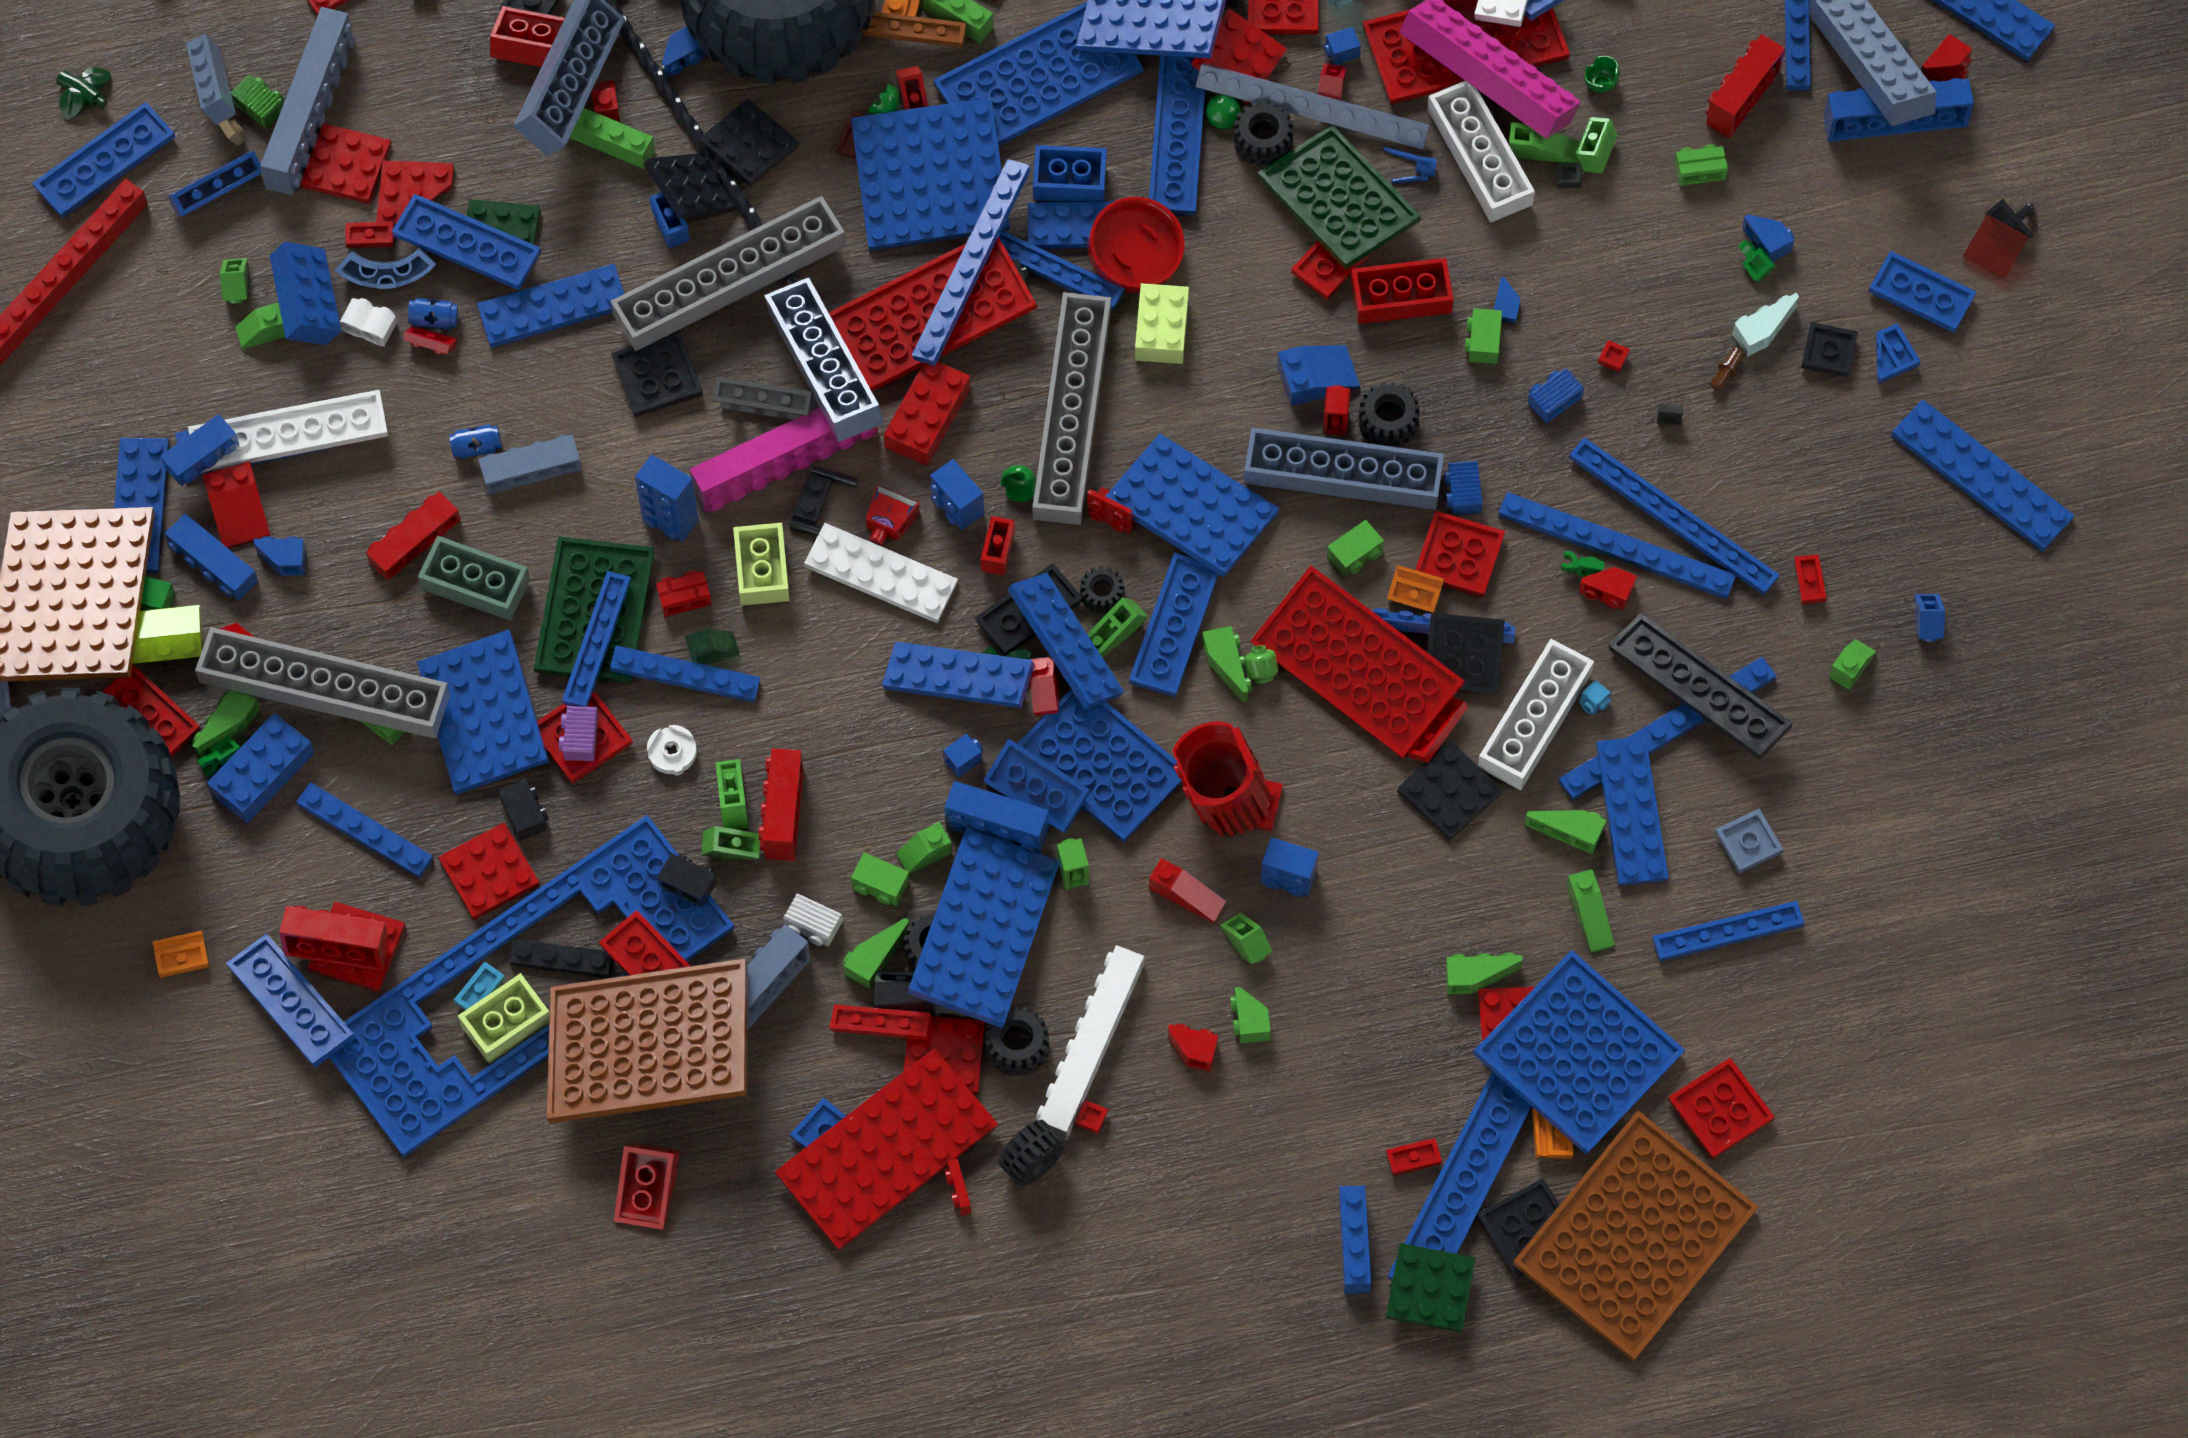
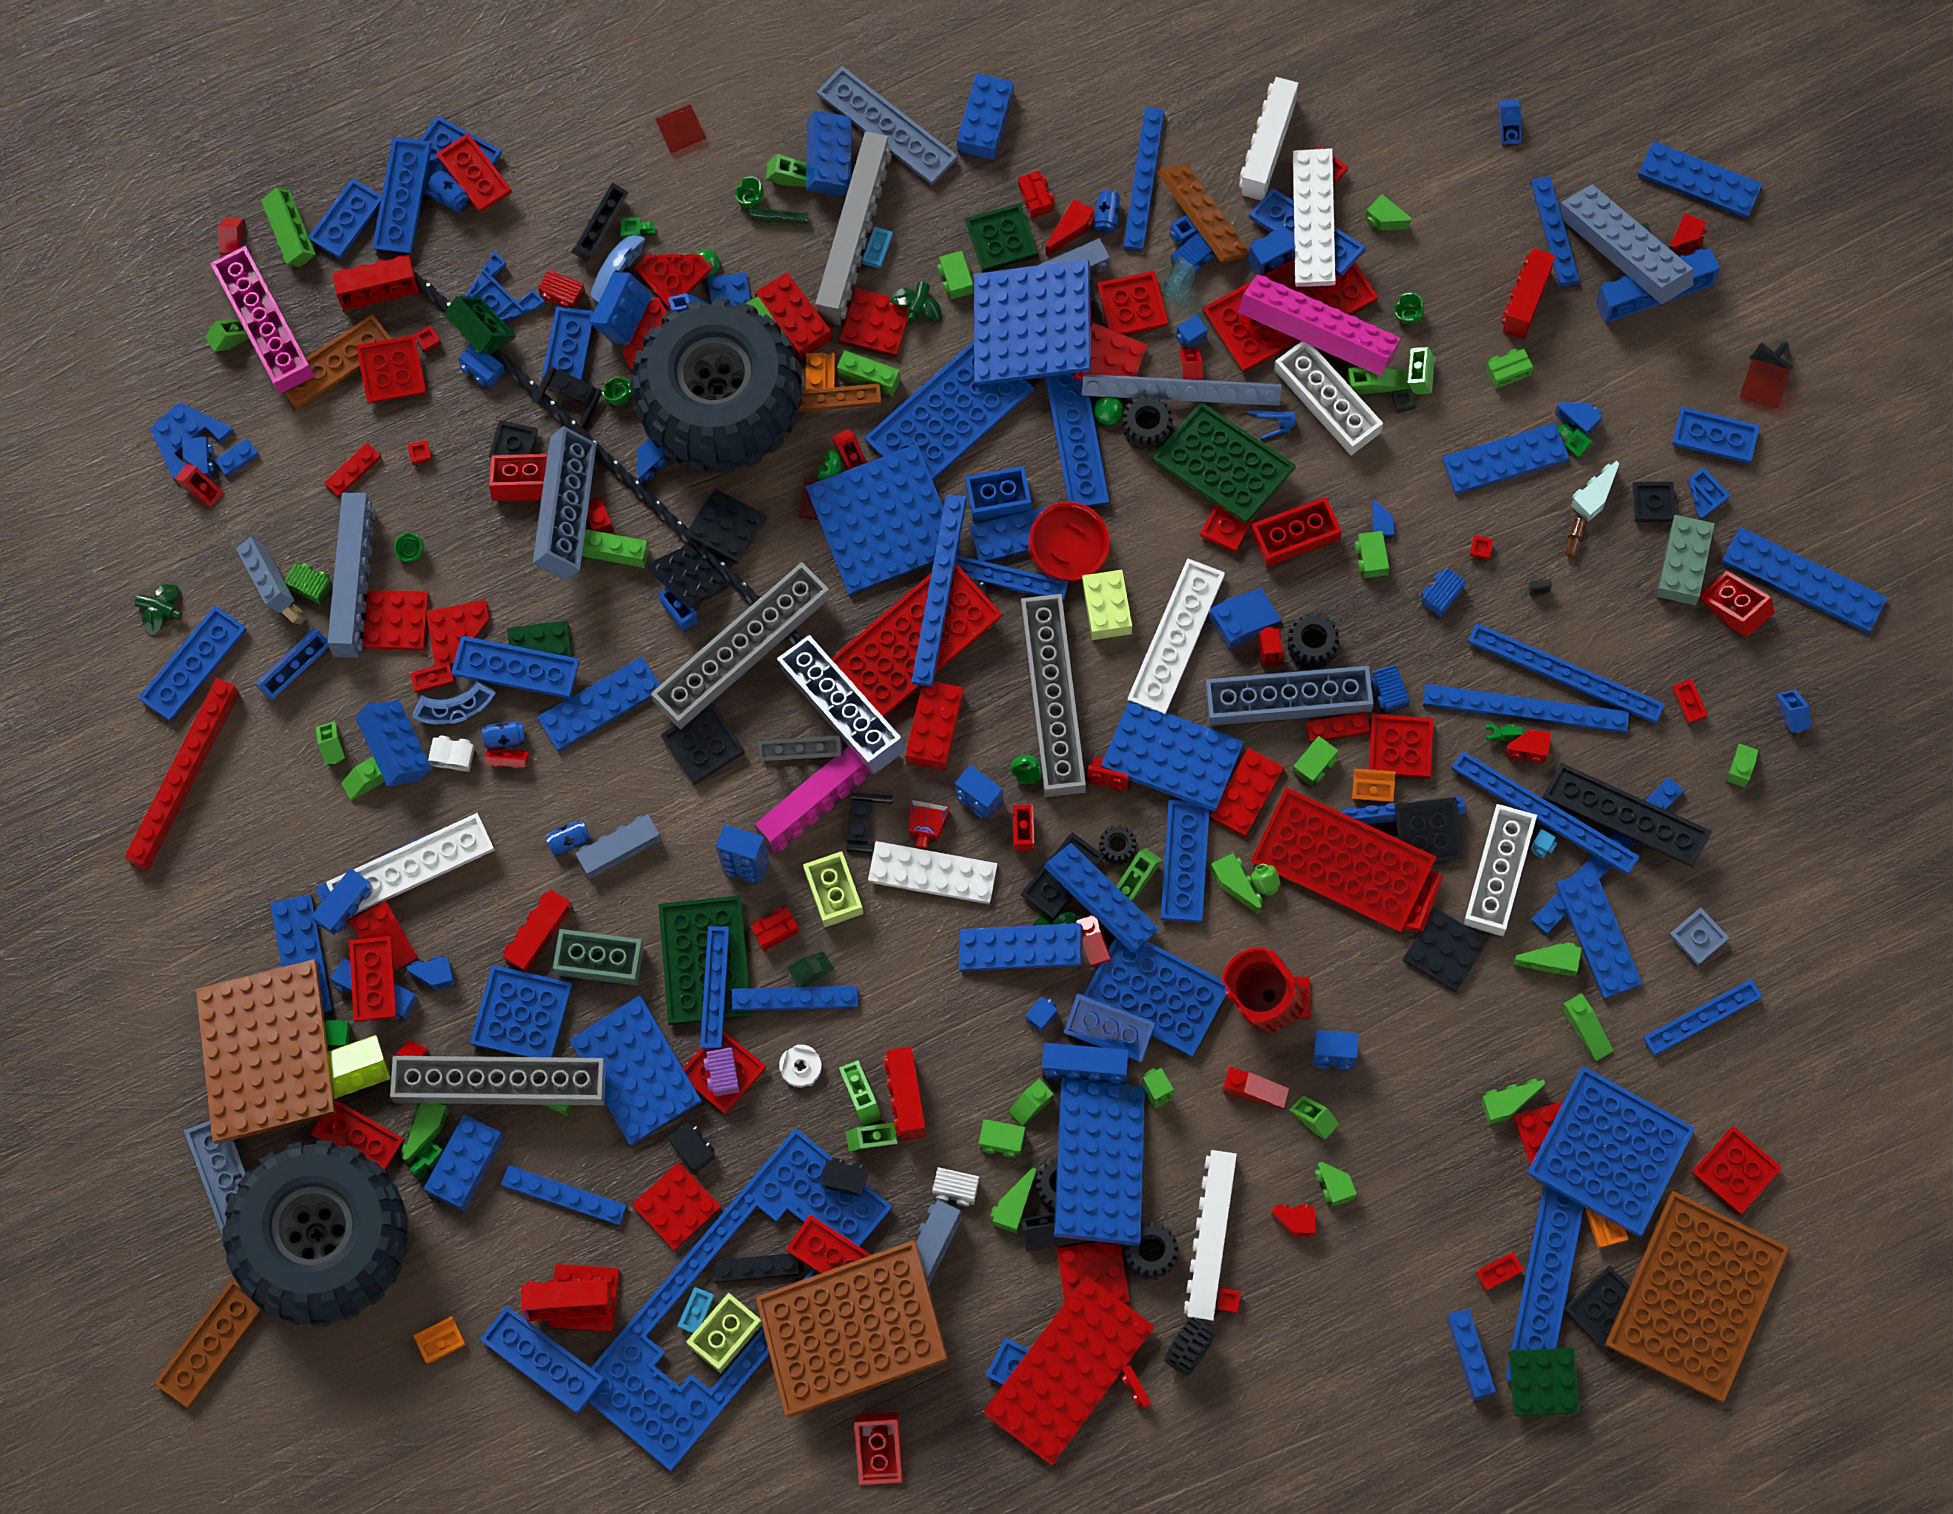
camera: 10 degrees left, 5 degrees up
(211, 542) = (372, 979): none -> red plate
(370, 619) = (521, 1013): none -> blue plate
(382, 87) = (409, 547): none -> green hair
(881, 1022) = (1035, 1261): red plate -> none
(1232, 376) = (1176, 636): none -> white plate
(1267, 566) = (1247, 792): none -> red plate
(1394, 517) = (1338, 727): none -> red plate
(1606, 664) = (1546, 813): none -> blue plate
(1669, 265) = (1505, 458): none -> blue plate
(1847, 421) = (1685, 560): none -> sand green brick
(1897, 483) = (1738, 603): none -> red slope

